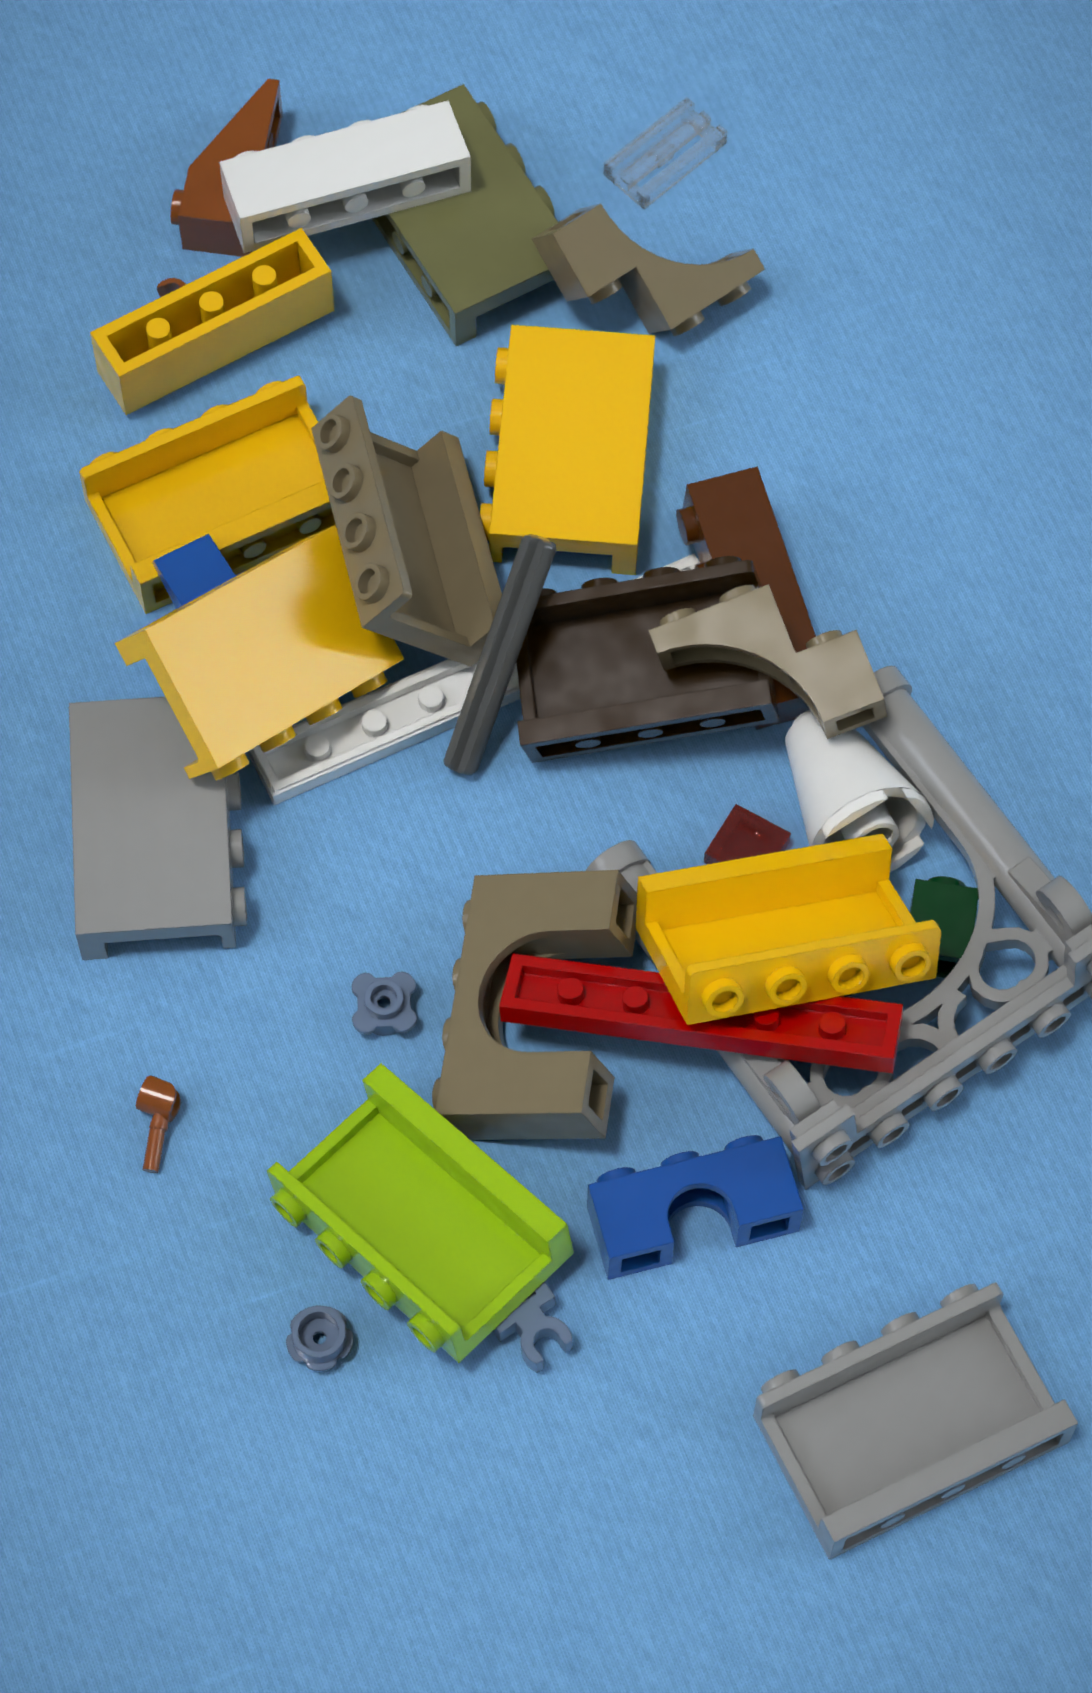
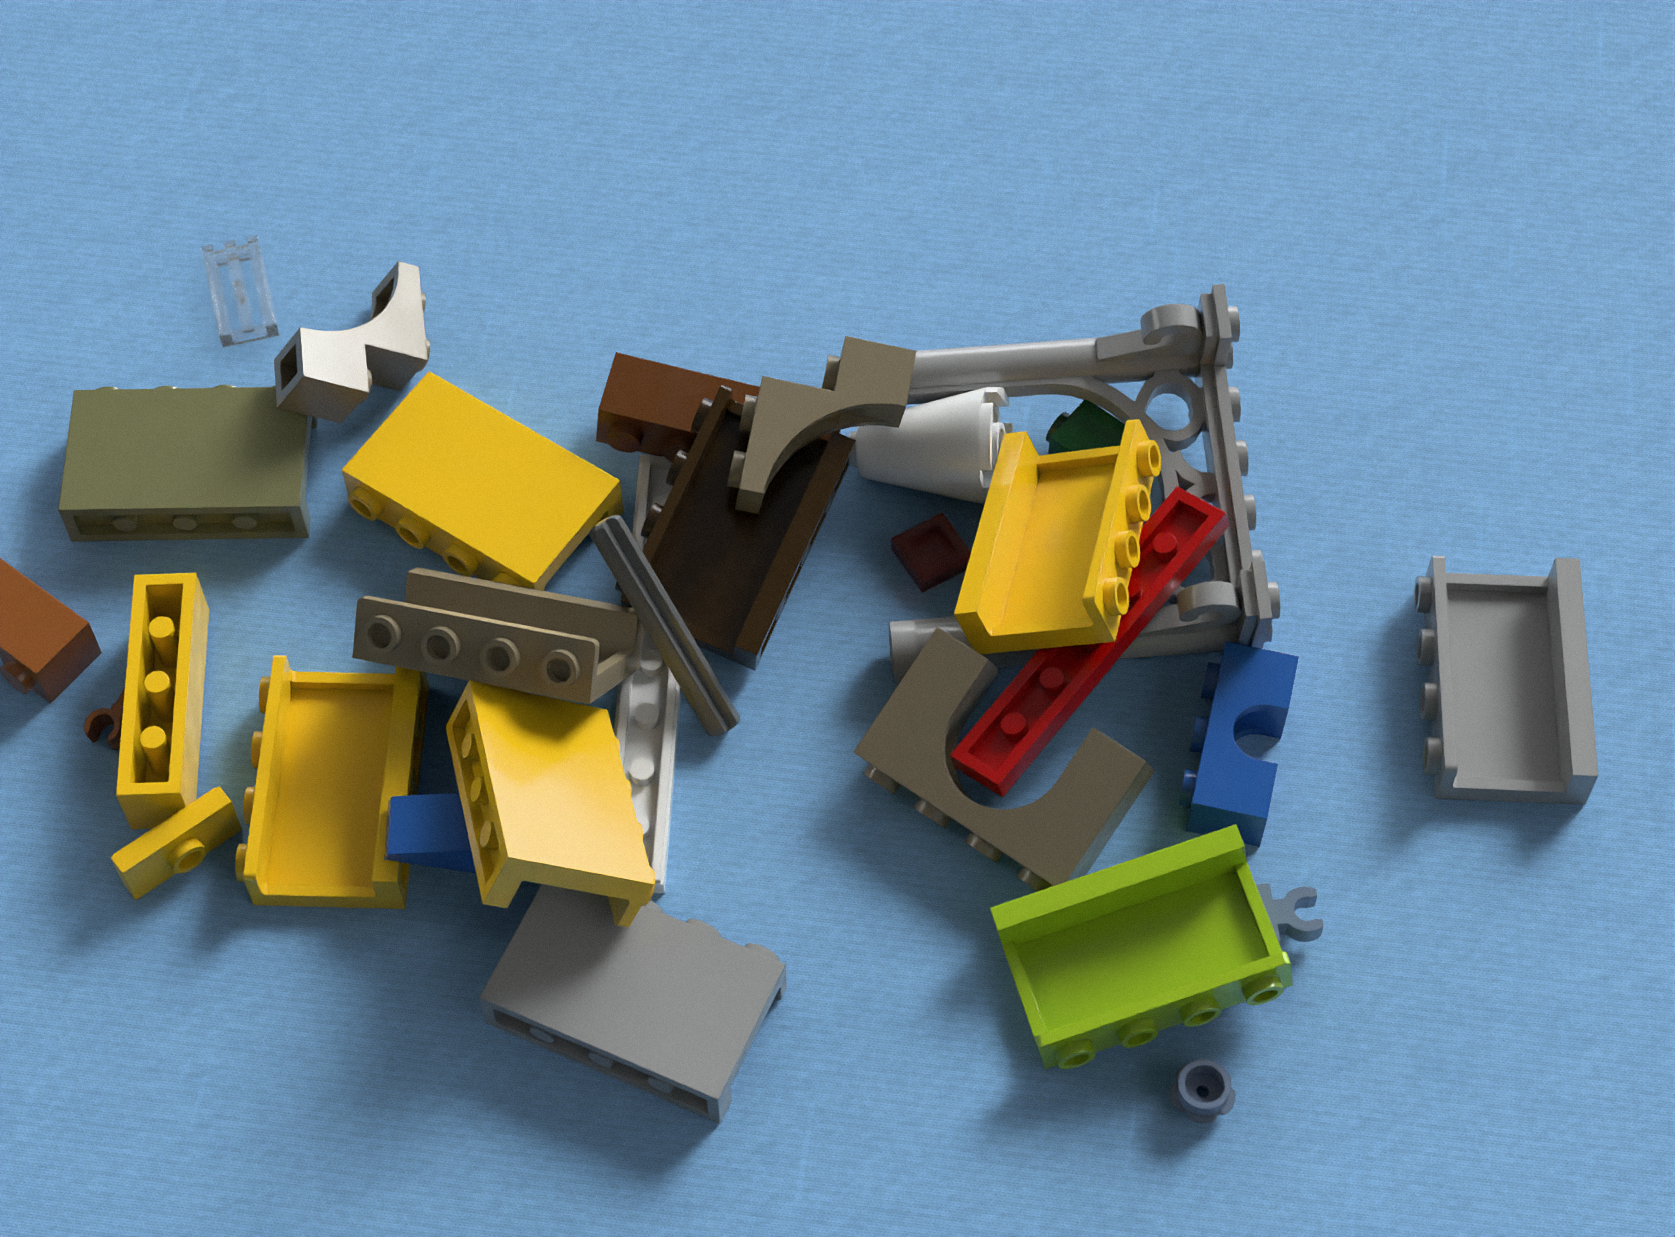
camera: 60 degrees left, 5 degrees down
(93, 407) = (177, 843): none -> yellow plate
(163, 1102) = (907, 1115): dark orange hand -> none
(346, 175) = (108, 515): white brick -> none
(384, 1021) = (922, 907): sand blue plate -> none

